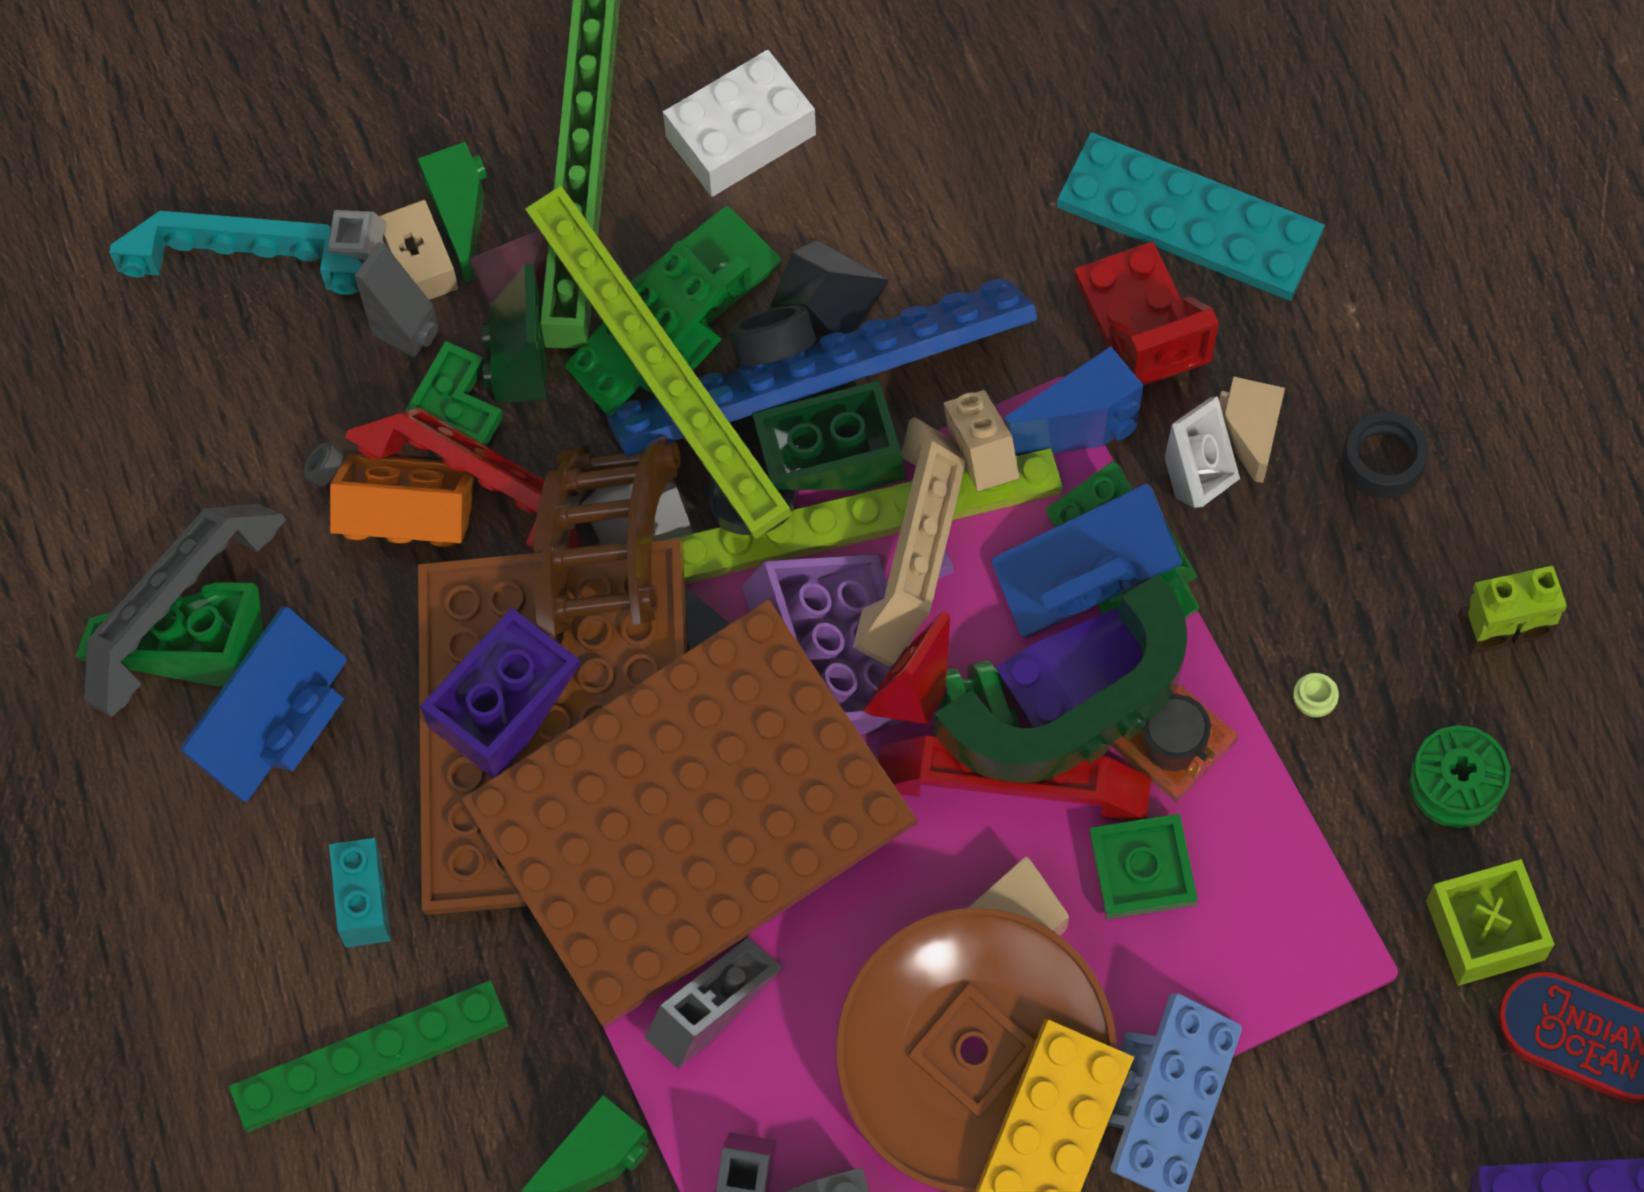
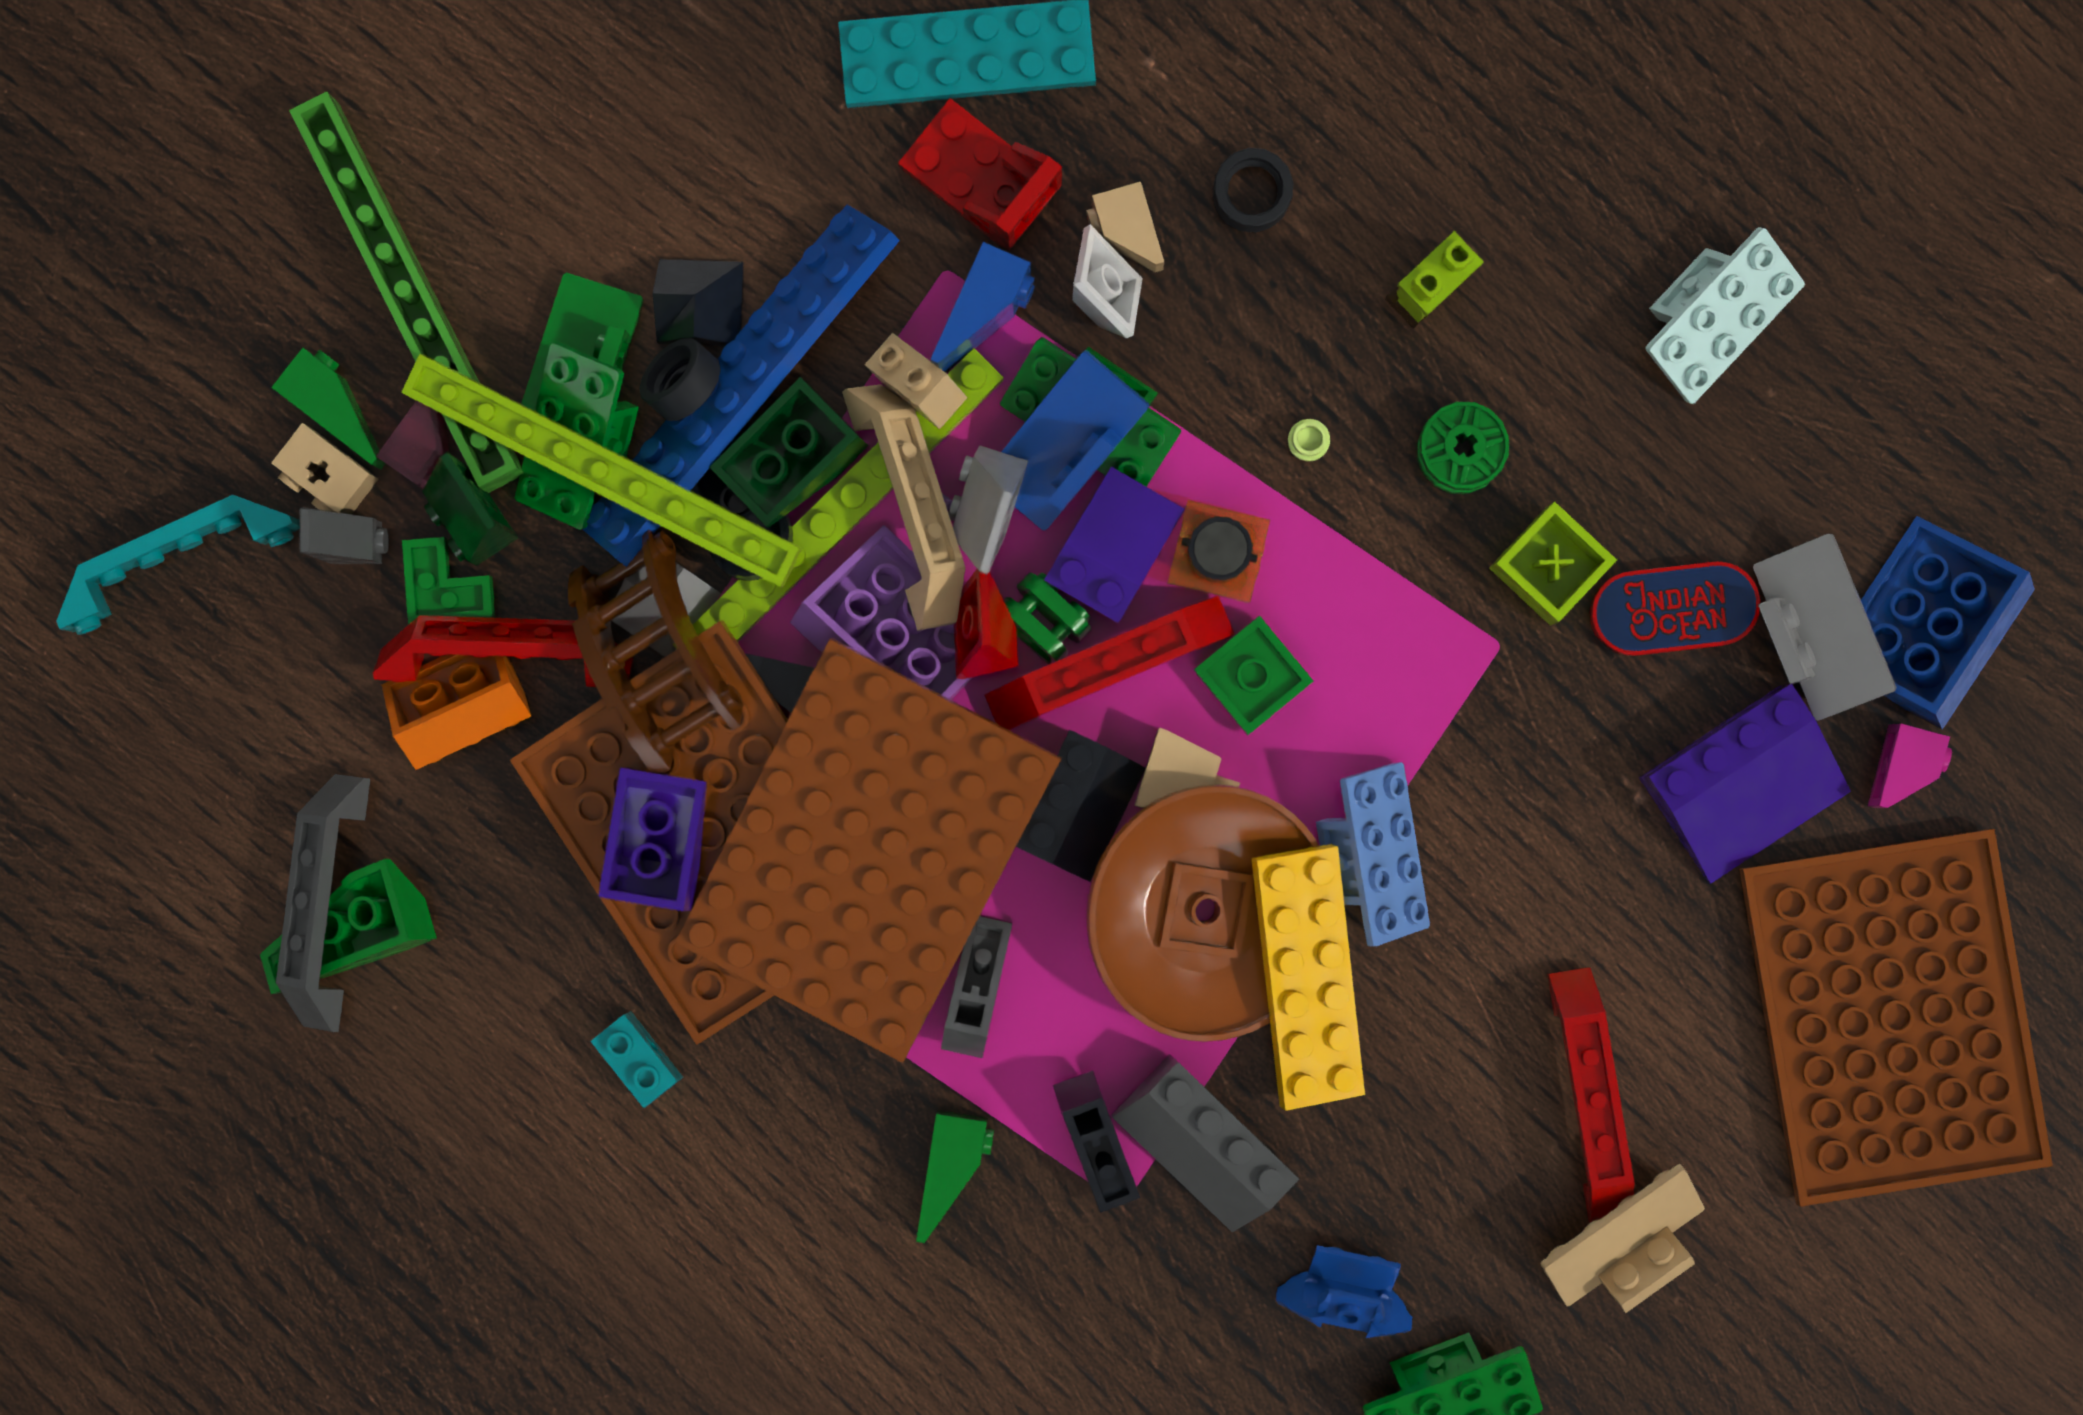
camera: 30 degrees left, 20 degrees up
(268, 707) = (464, 949): blue bracket -> none
(323, 464) = (368, 710): dark grey tile -> none
(355, 233) = (266, 493): light grey slope -> none
(368, 1056) = (726, 1181): green plate -> none
(739, 123) = (529, 188): white brick -> none
(906, 881) = (1081, 806): none -> black slope
(985, 574) = (986, 503): none -> light grey slope
(1088, 729) = (1092, 661): dark green arch -> none

